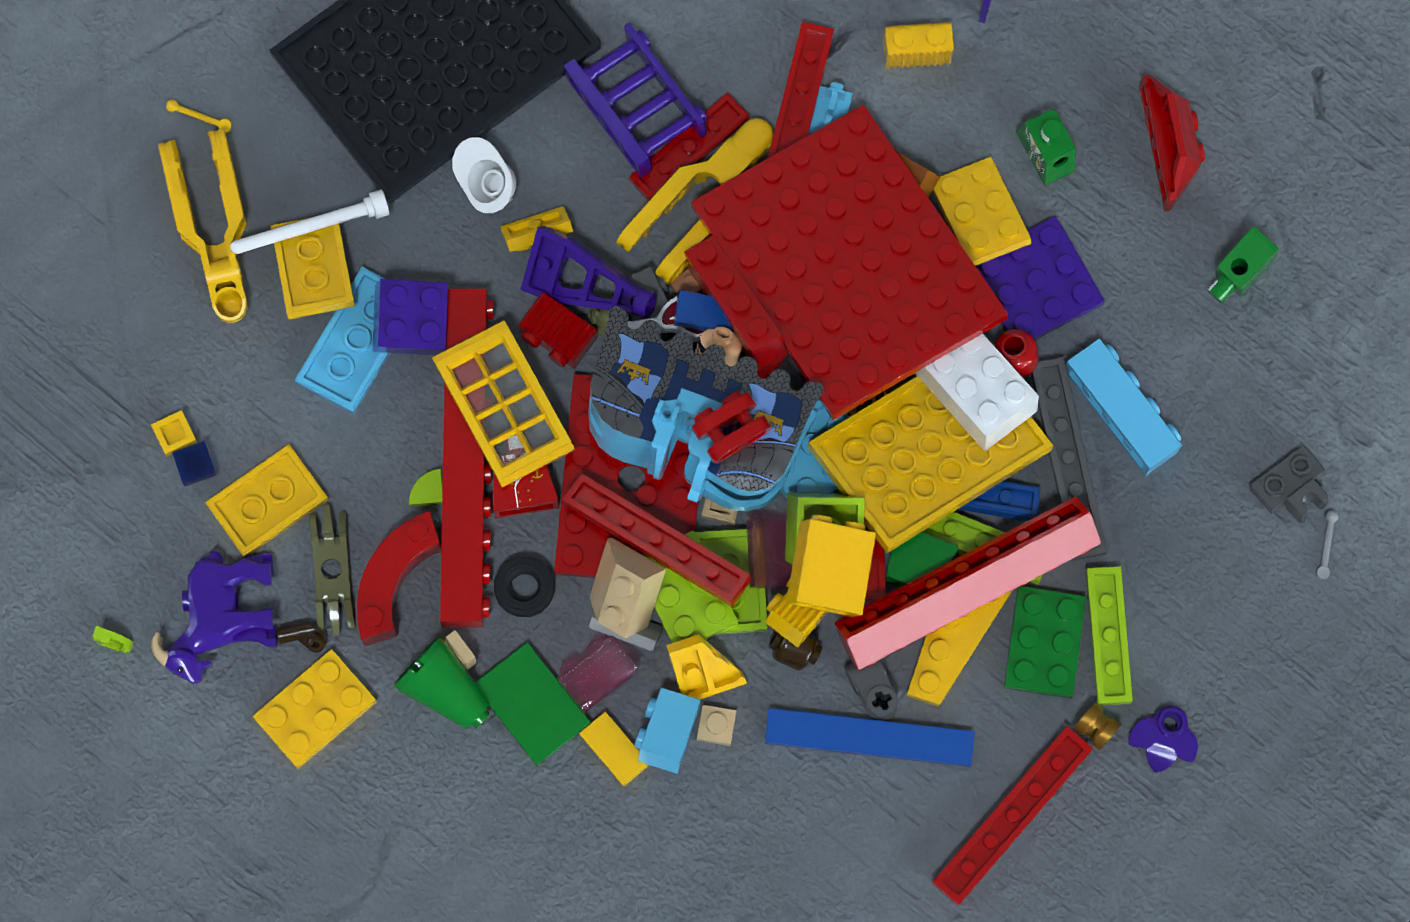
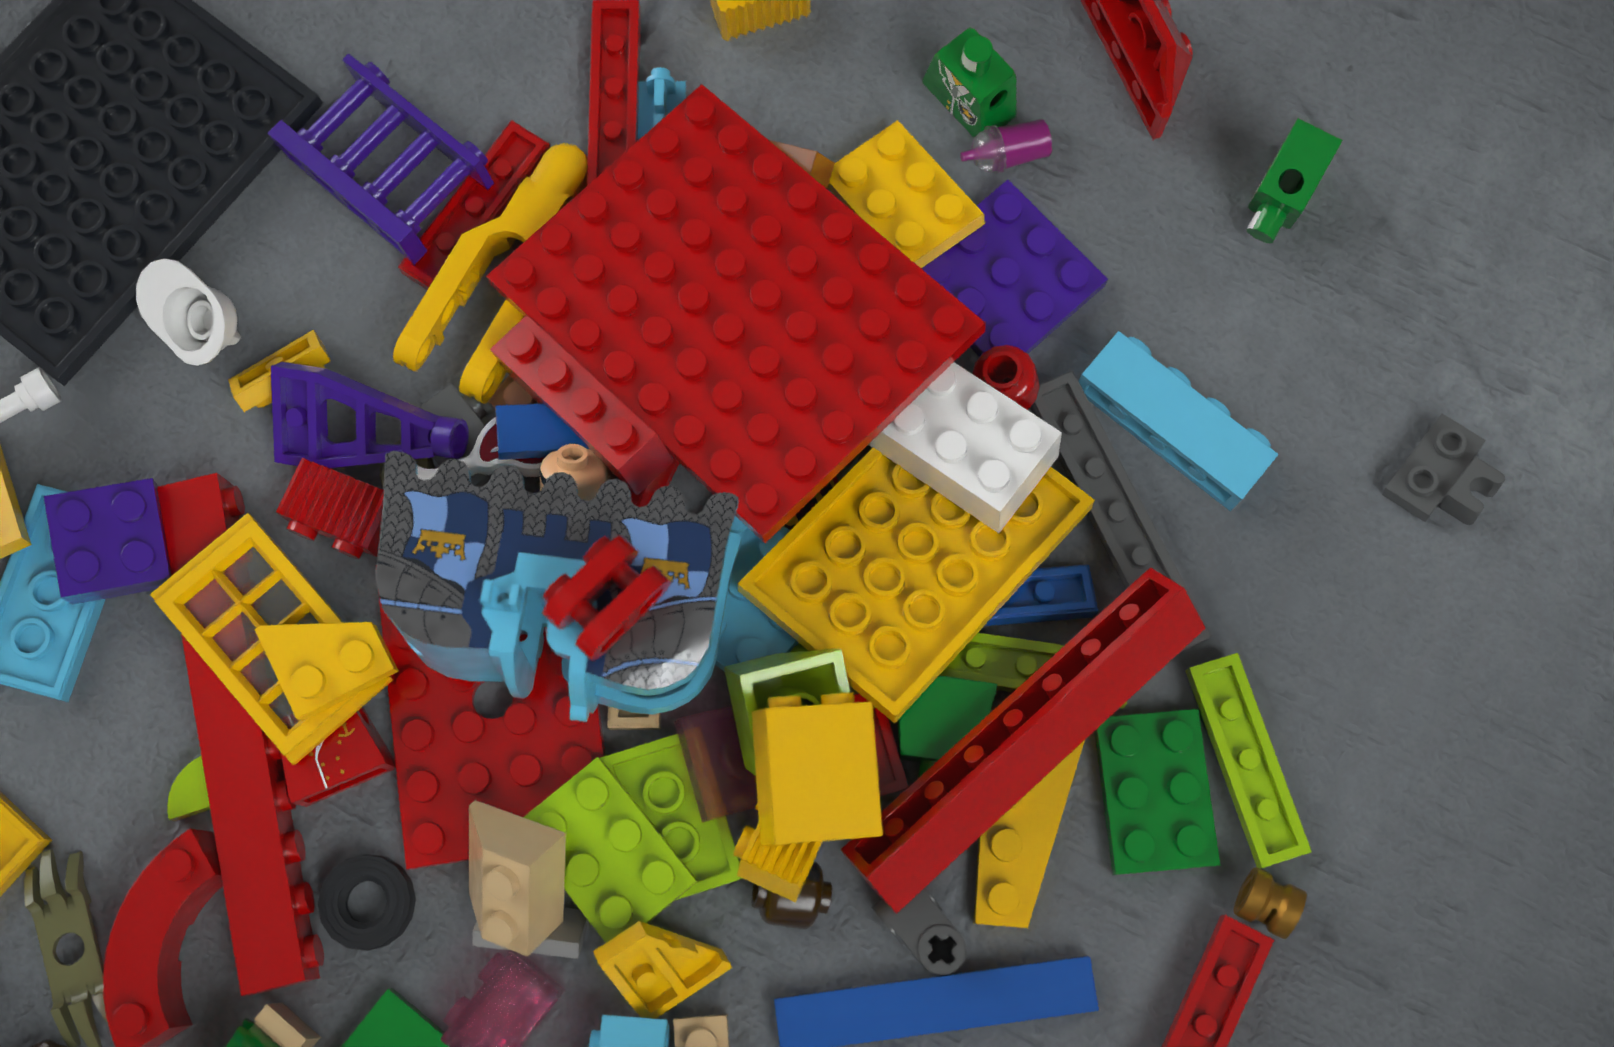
camera: 10 degrees left, 0 degrees up
(537, 427) = (325, 662): none -> yellow wing
(657, 540) = (545, 790): red plate -> none
(1062, 193) = (1009, 146): none -> magenta piece
(1164, 744) = (1367, 902): dark purple plate -> none
(1323, 571) = (1521, 586): light grey hinge -> none

